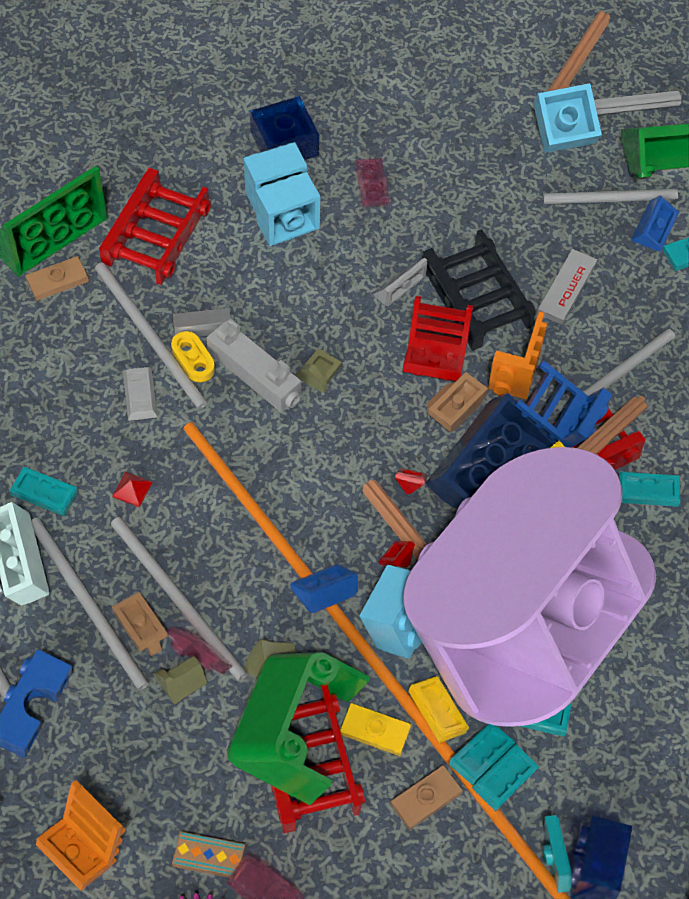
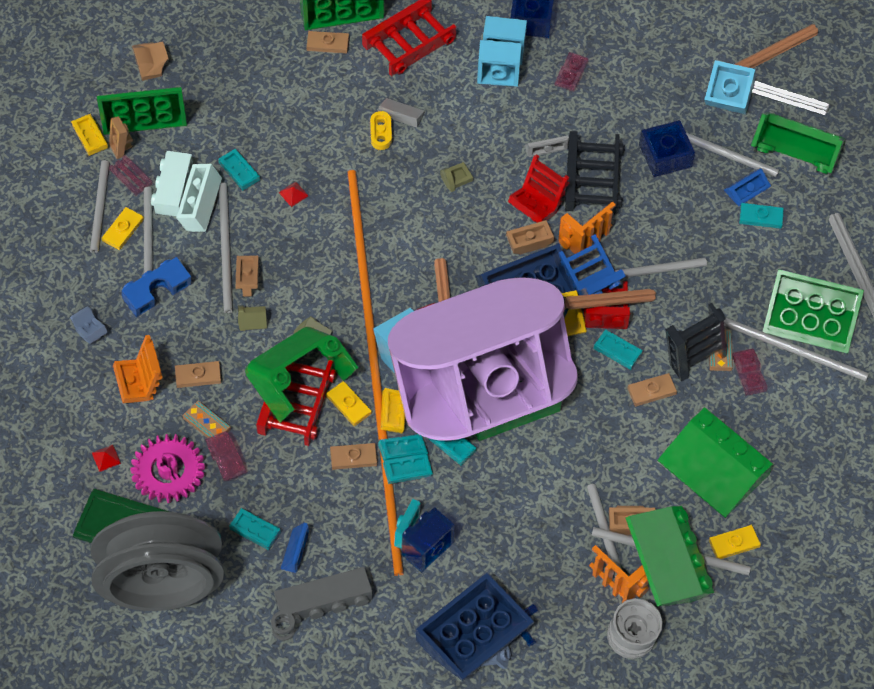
camera: 30 degrees right, 0 degrees up
(139, 393) = (334, 138): light grey tile -> none
(151, 336) = (363, 105): light grey piece -> none
(156, 794) = (197, 374): none -> medium nougat plate
(176, 596) = (280, 271): light grey piece -> none
(192, 646) = (274, 309): clear pink slope -> none
(255, 366) = (414, 154): light grey brick -> none
(326, 587) = (371, 307): blue slope -> none
(410, 479) = (467, 269): red slope -> none
(543, 221) = (666, 148): none -> clear blue brick
(567, 286) = (656, 199): light grey tile -> none

